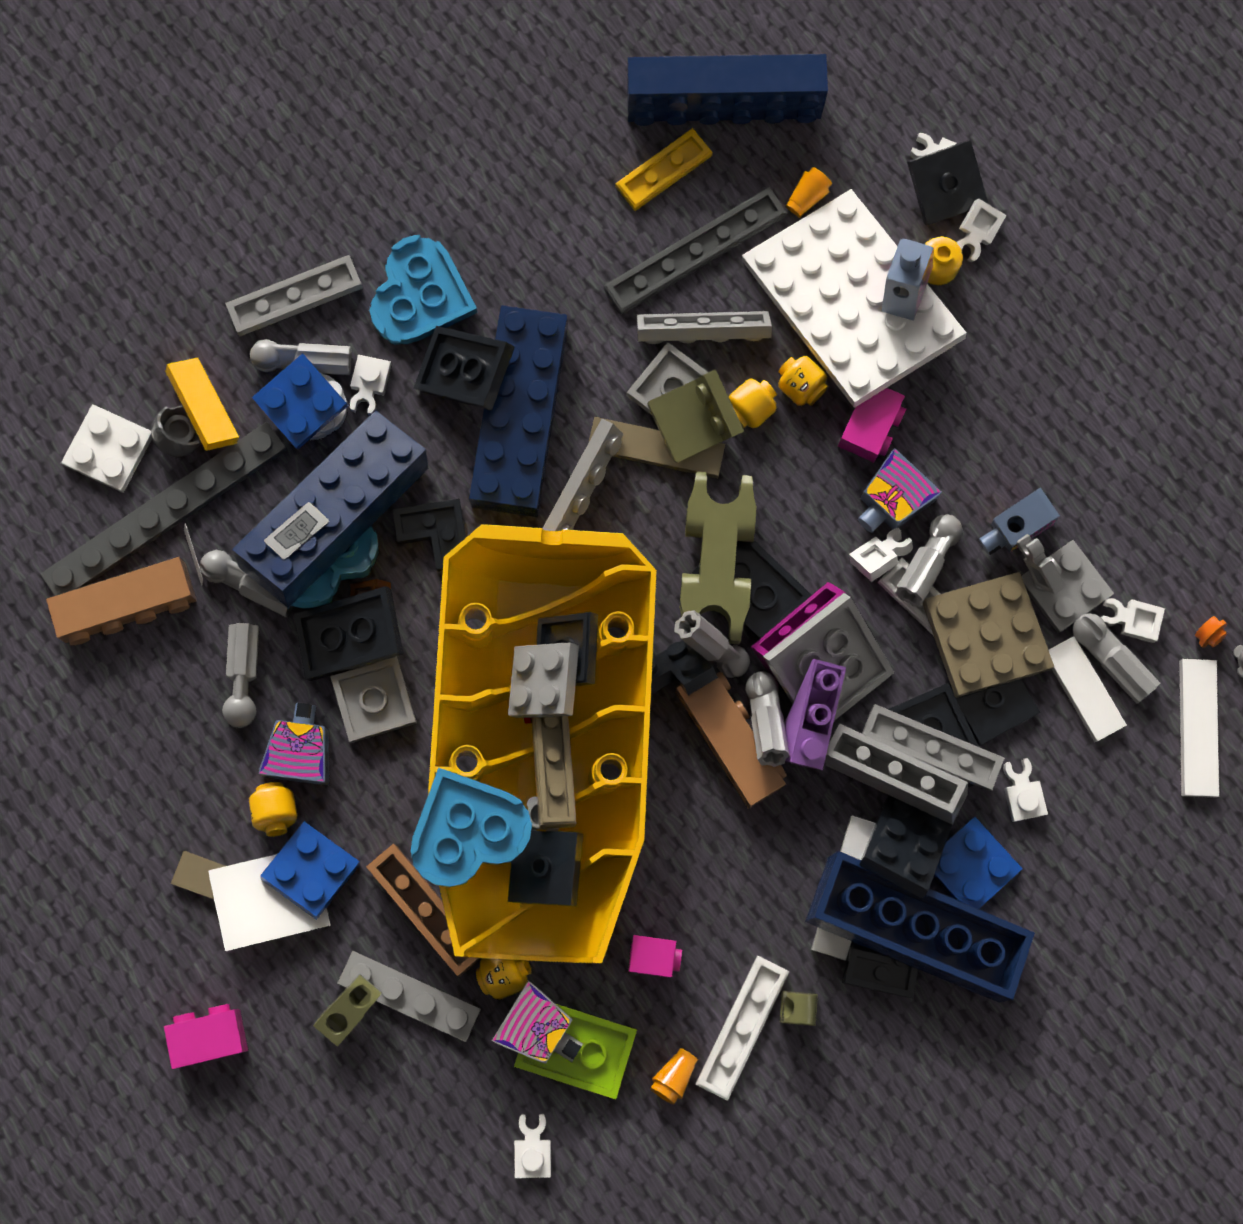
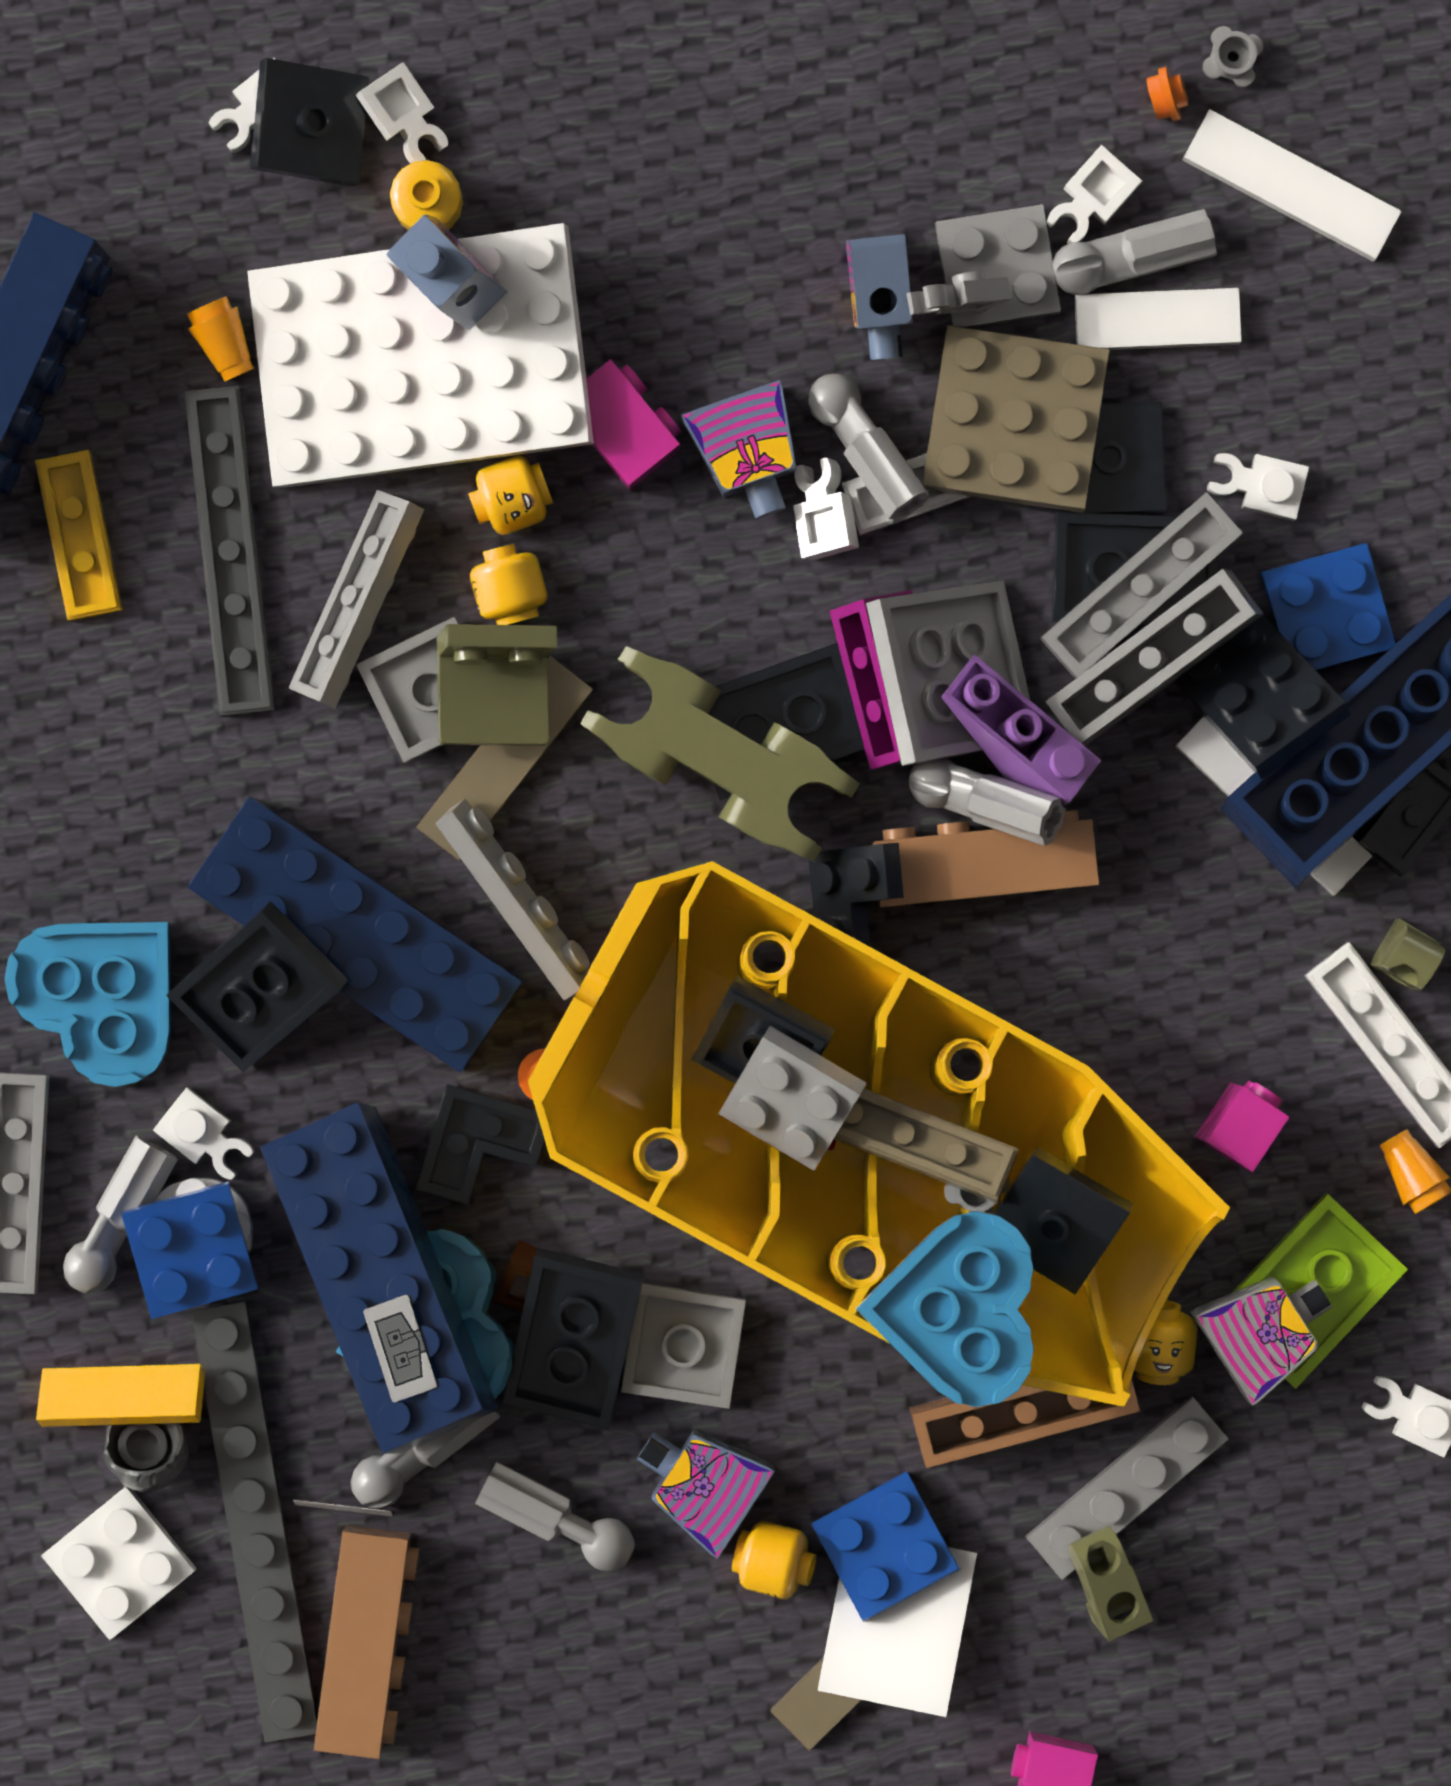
camera: 60 degrees left, 10 degrees up
(712, 644) = (846, 827): light grey piece -> none

